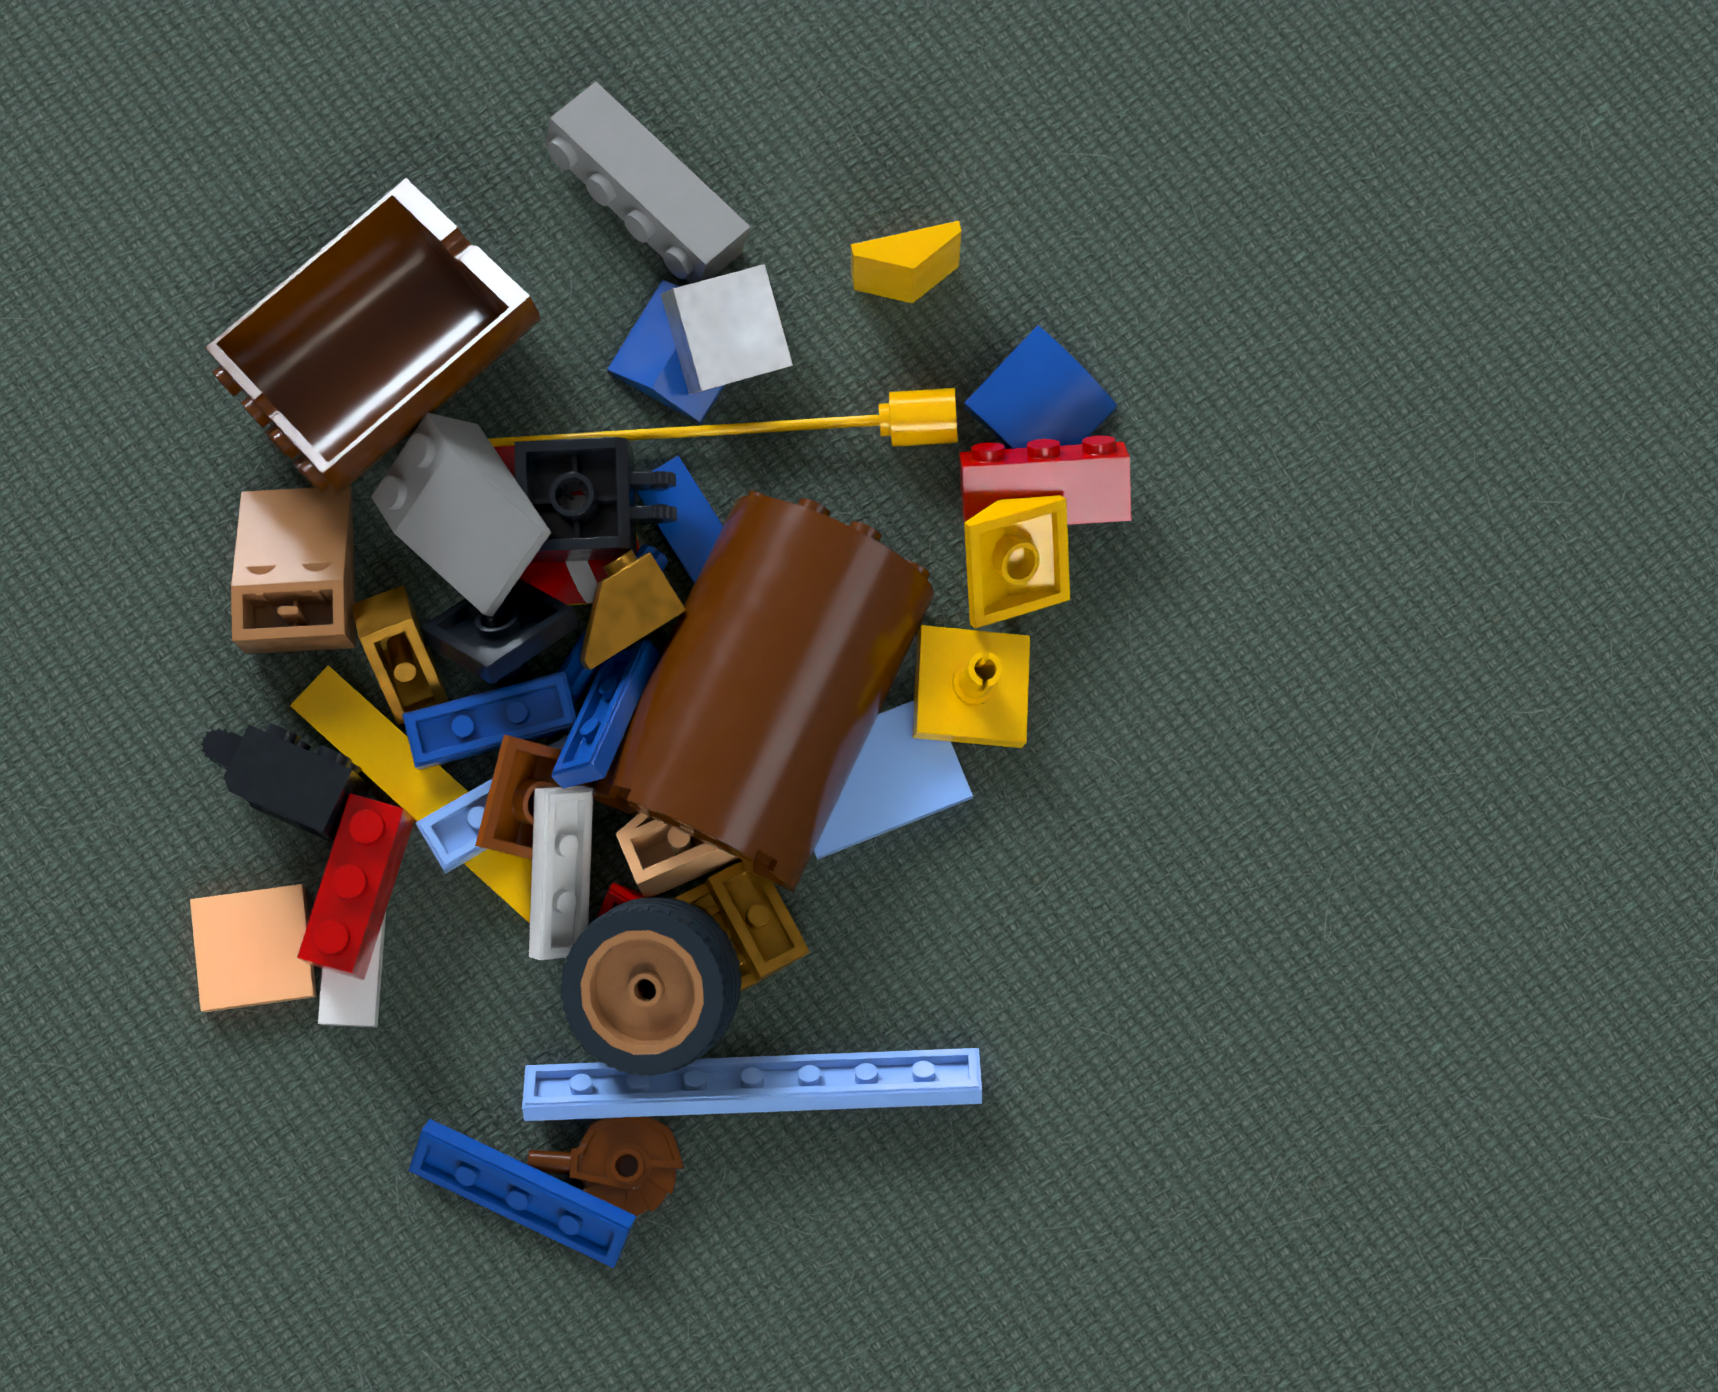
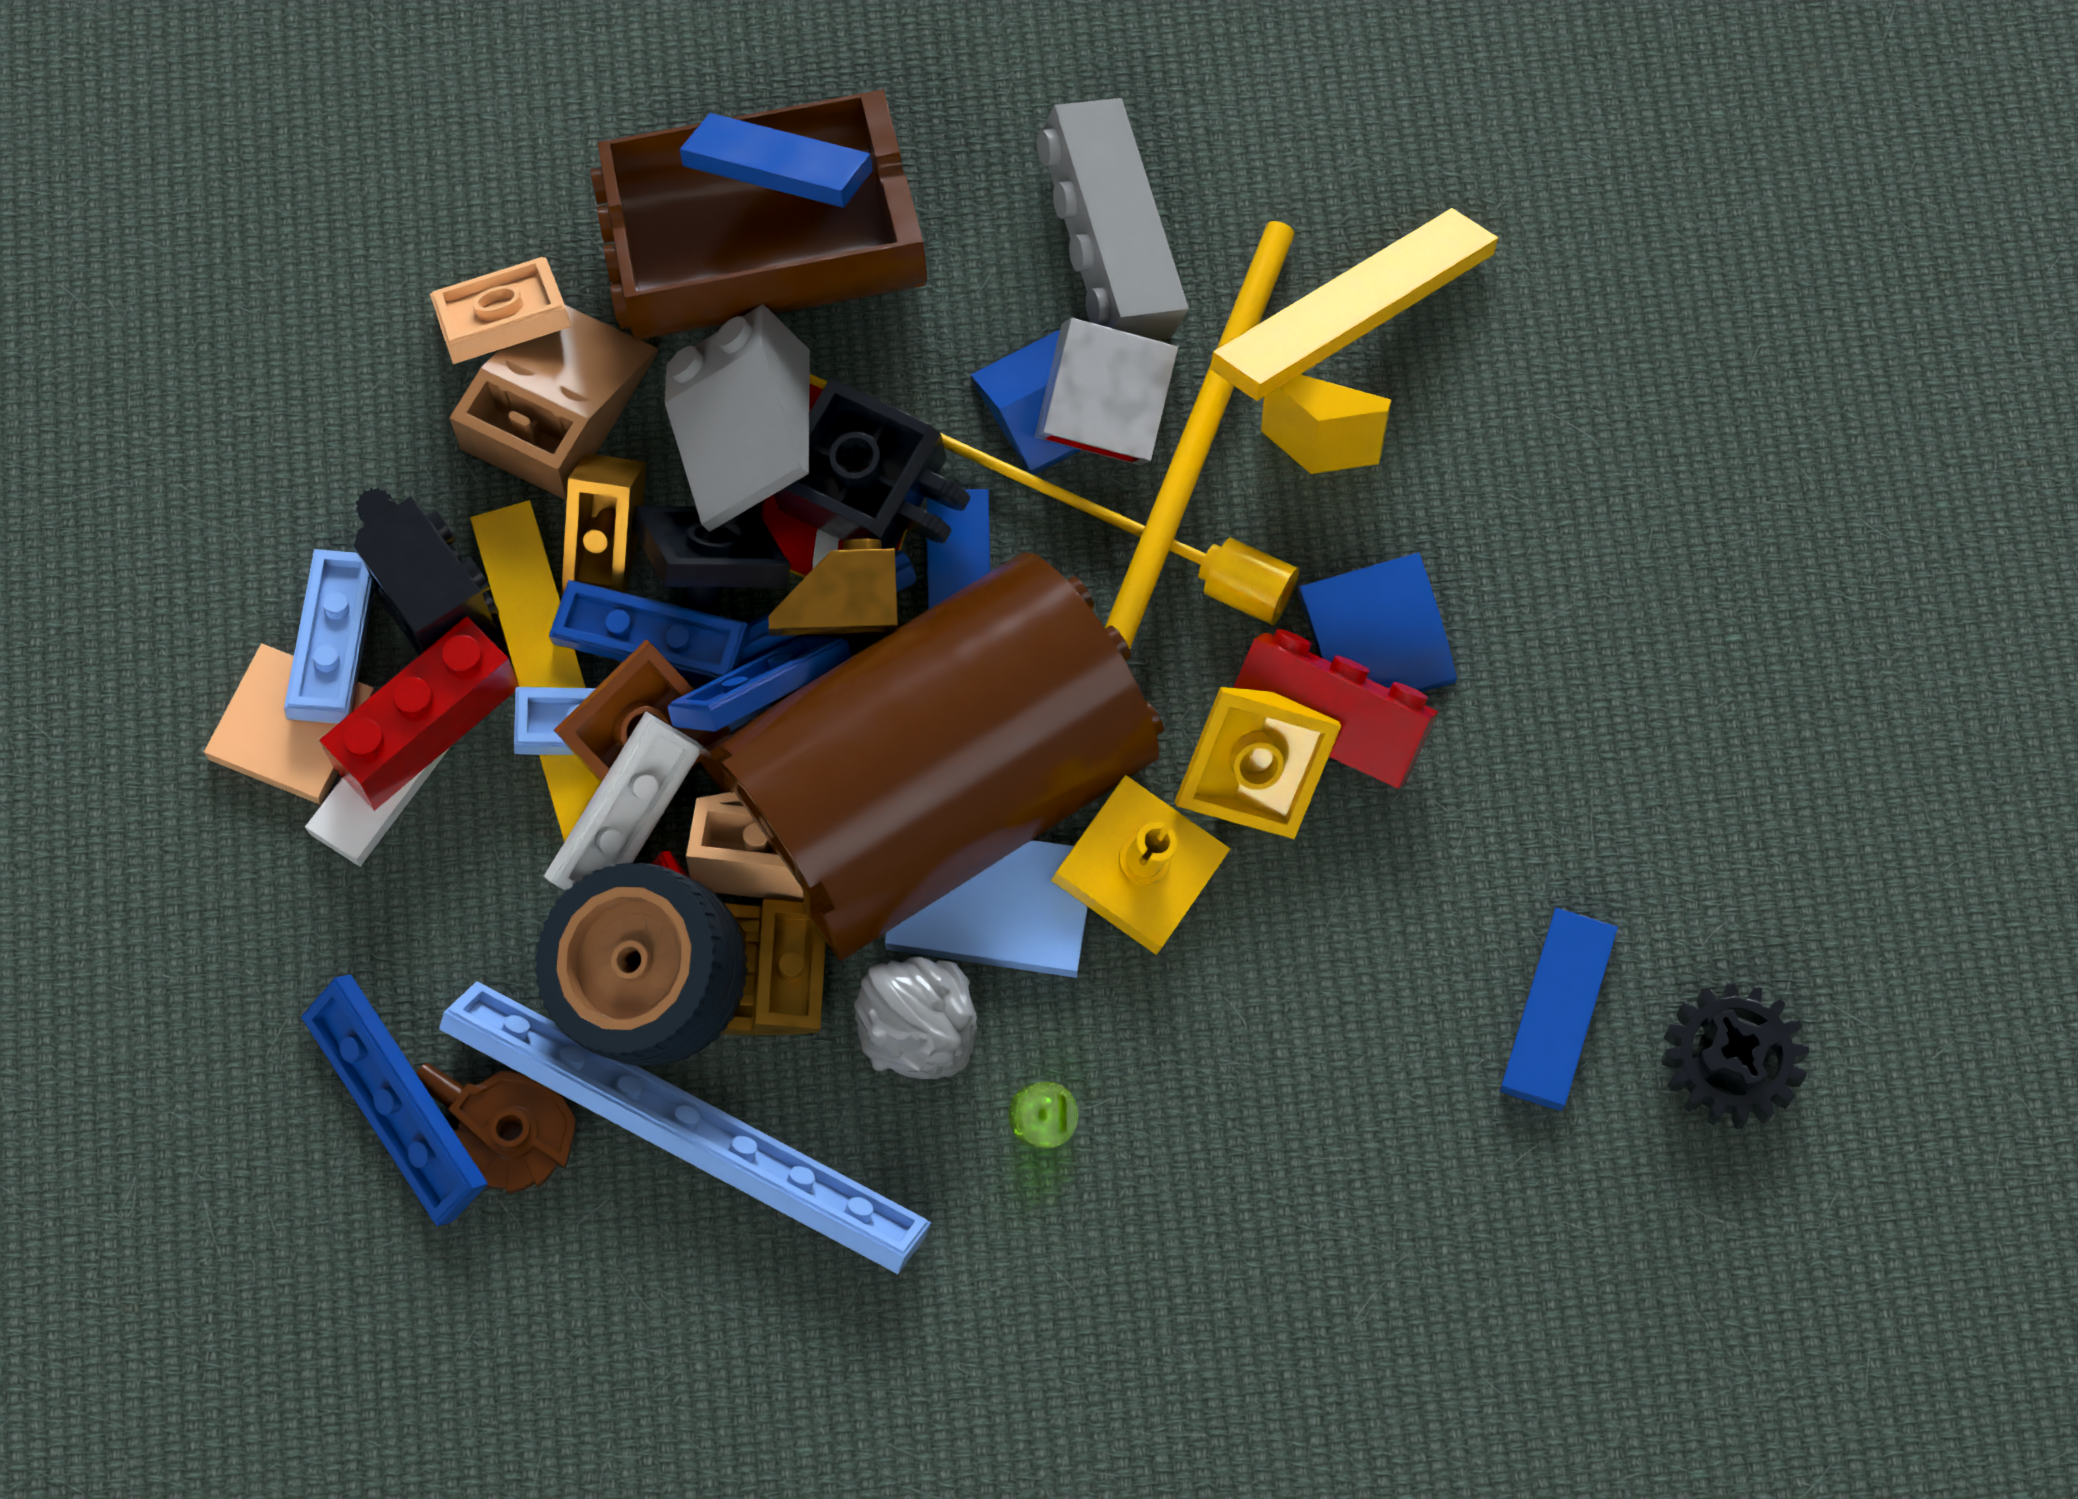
camera: 30 degrees right, 10 degrees down
(210, 526) = (500, 310): none -> light nougat tile
(243, 864) = (330, 638): none -> light blue tile
(363, 287) = (776, 160): none -> blue tile
(815, 320) = (1196, 439): none -> yellow piece
(877, 902) = (916, 1018): none -> light grey hair
(878, 156) = (1352, 304): none -> tile
(1013, 919) = (1043, 1114): none -> clear neon green tile
(1338, 619) = (1558, 1009): none -> blue tile
(1505, 591) = (1757, 1042): none -> black gear

